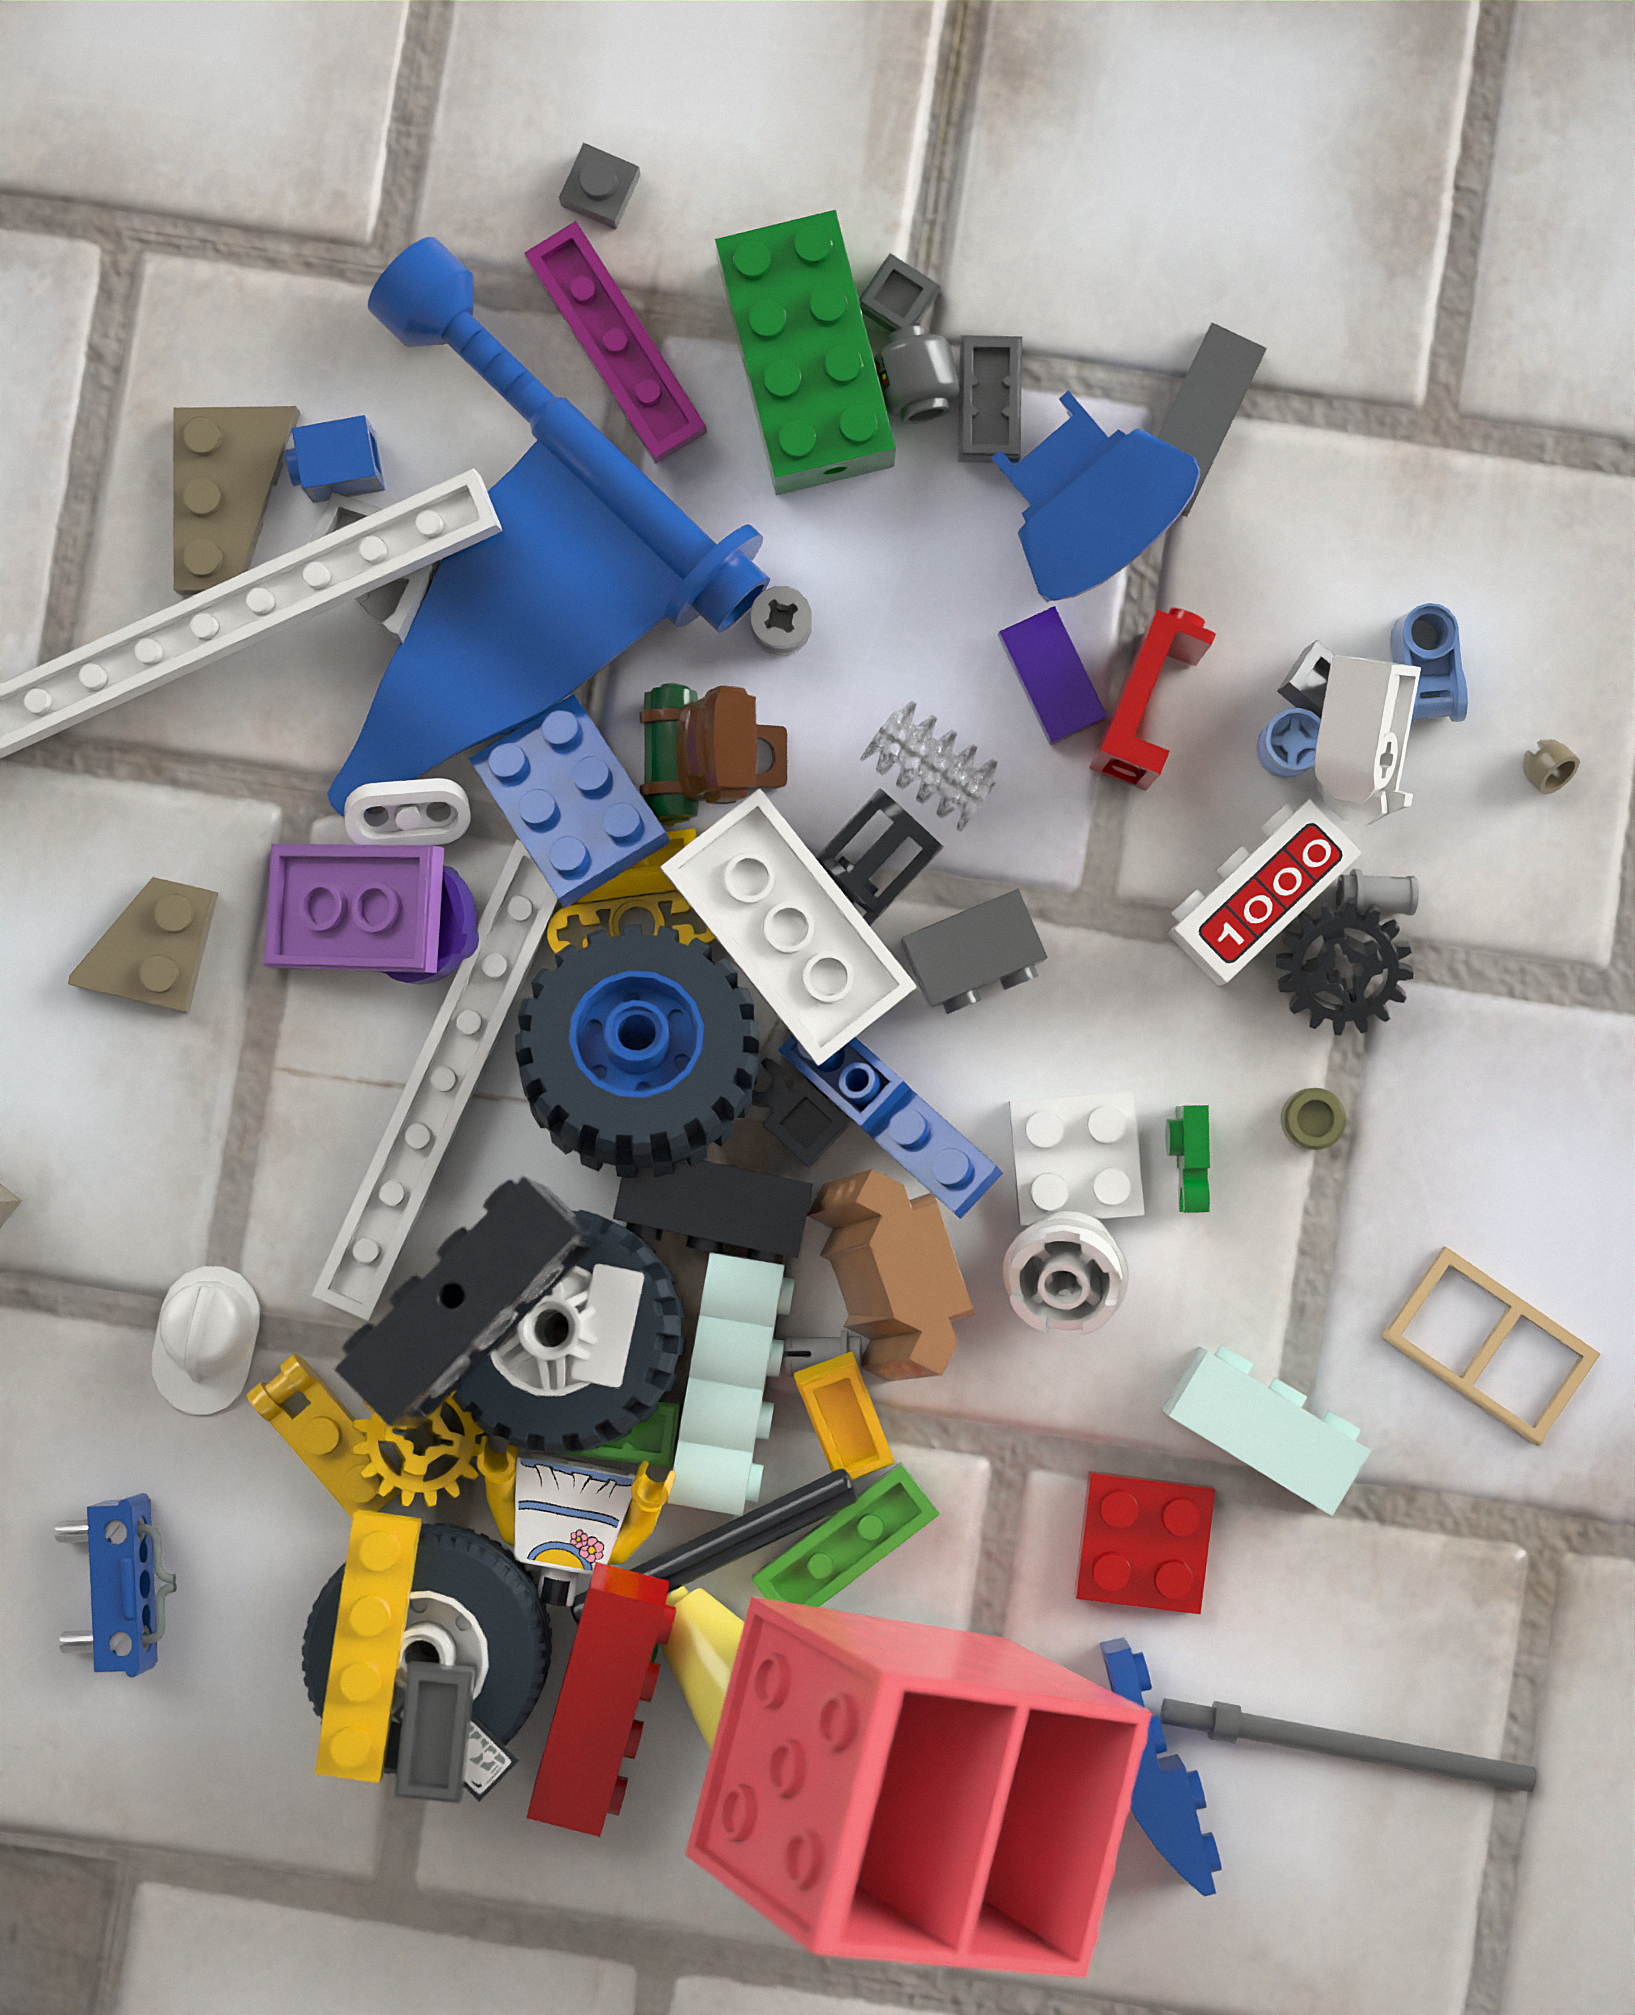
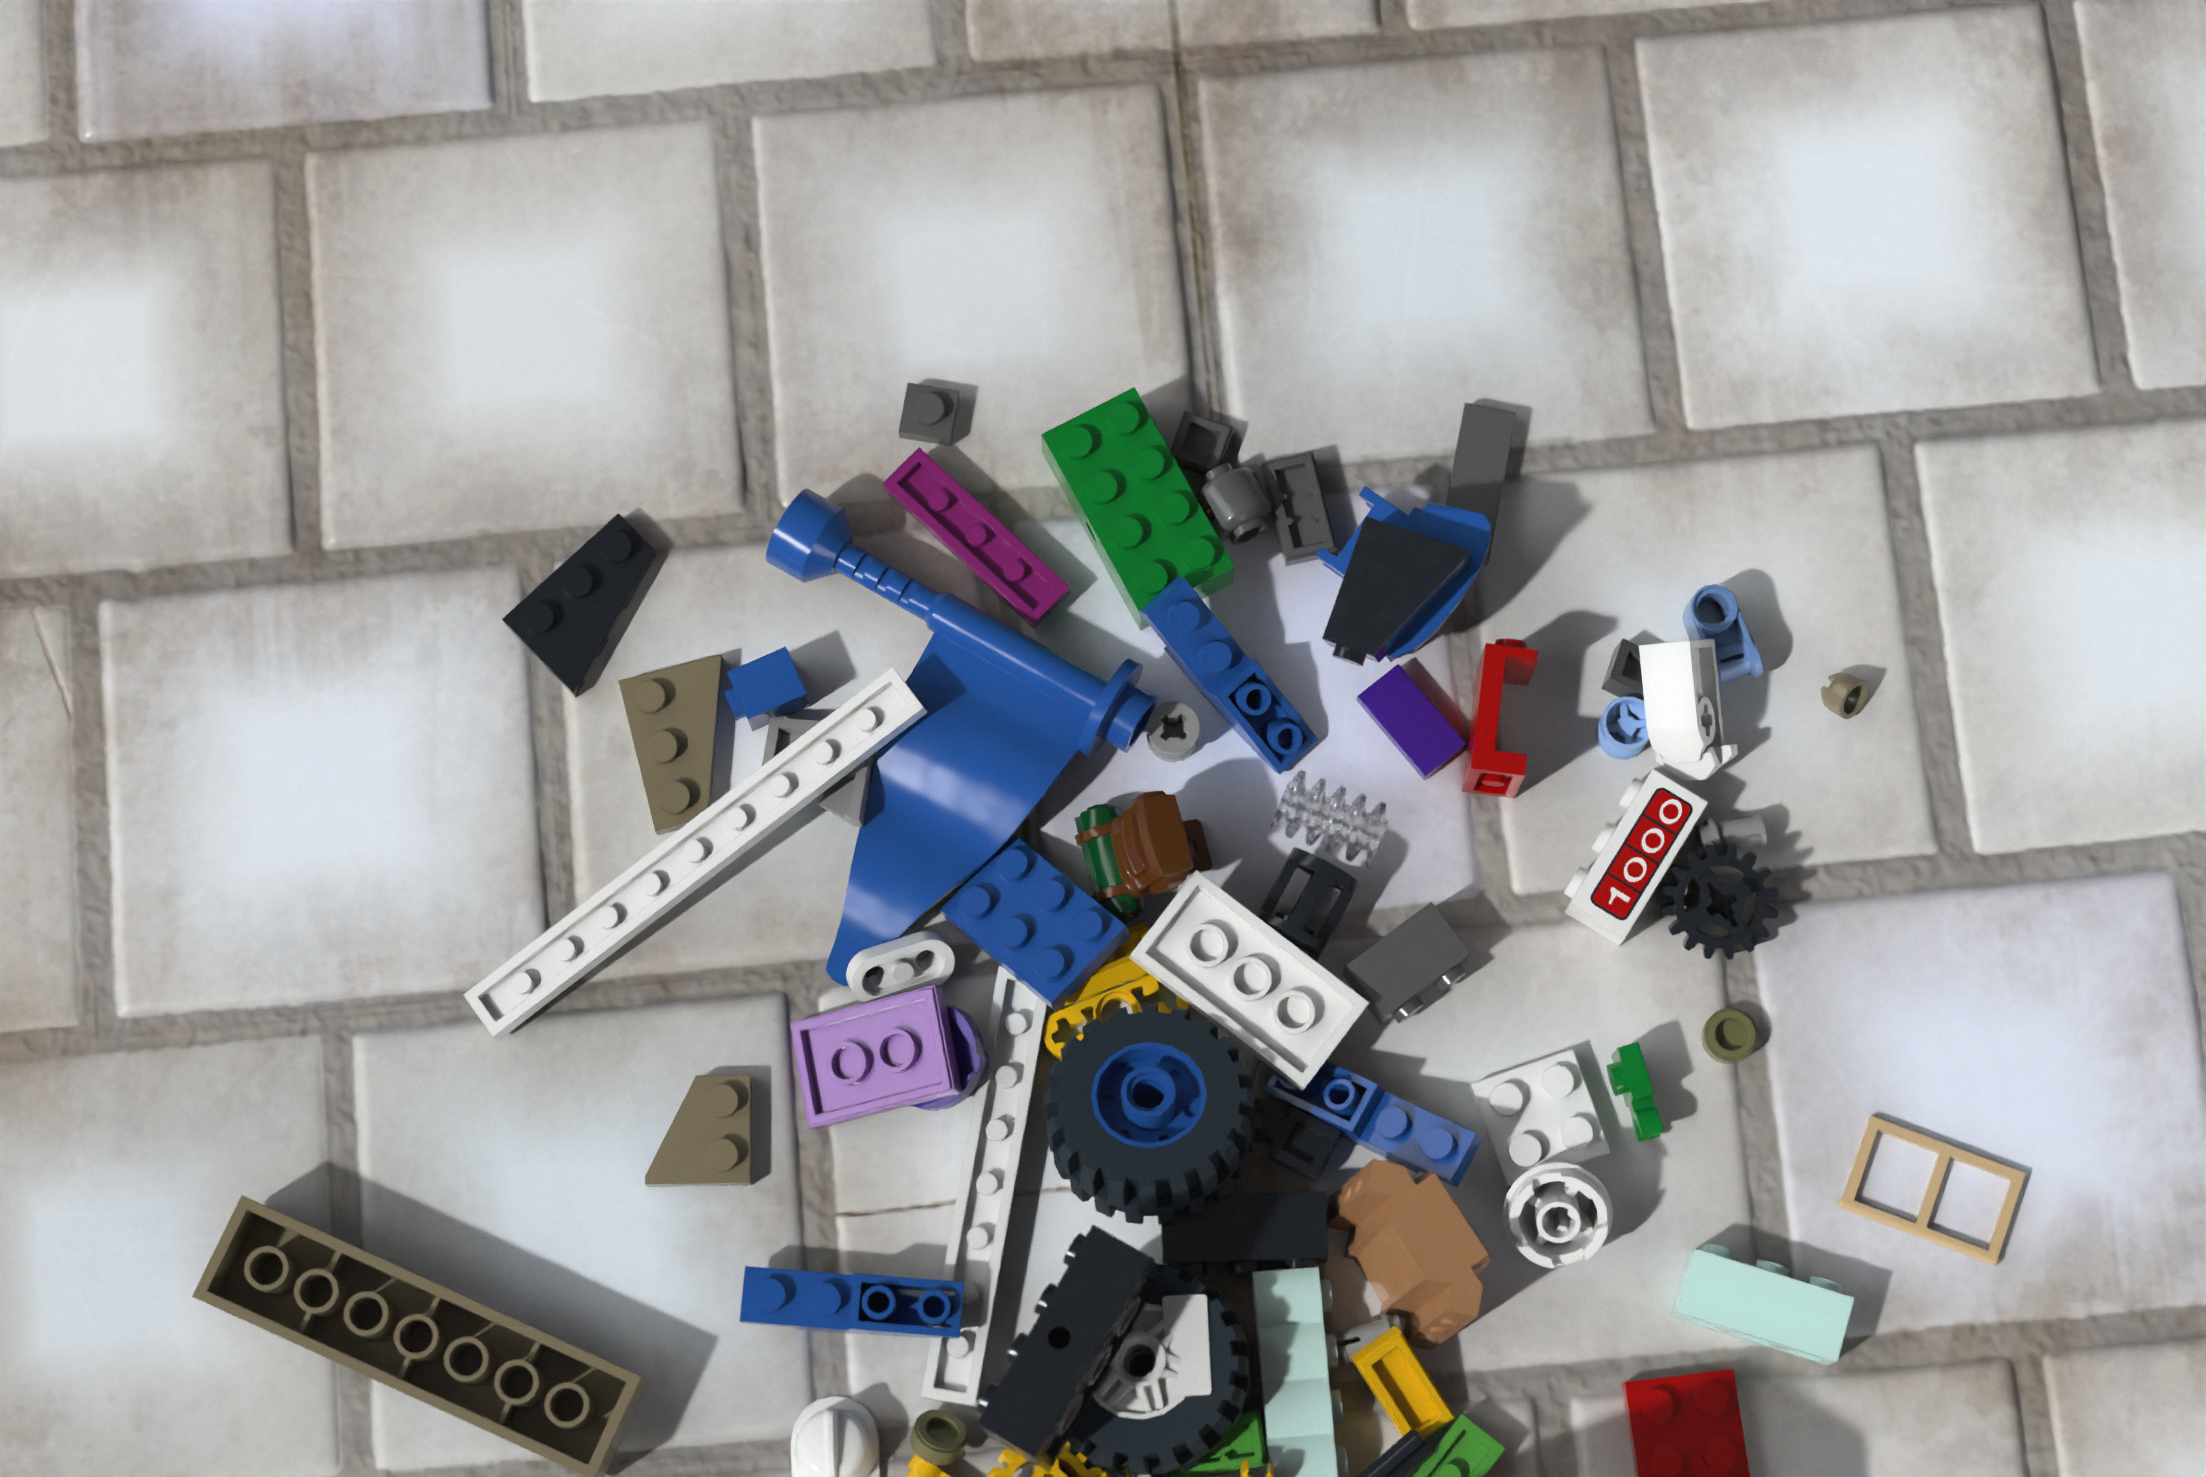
camera: 15 degrees left, 10 degrees down
(155, 305) = (579, 603): none -> black wing
(259, 1174) = (852, 1303): none -> blue slope
(318, 1343) = (939, 1437): none -> olive tile
(857, 571) = (1226, 676): none -> blue slope
(1062, 518) = (1388, 589): none -> black slope

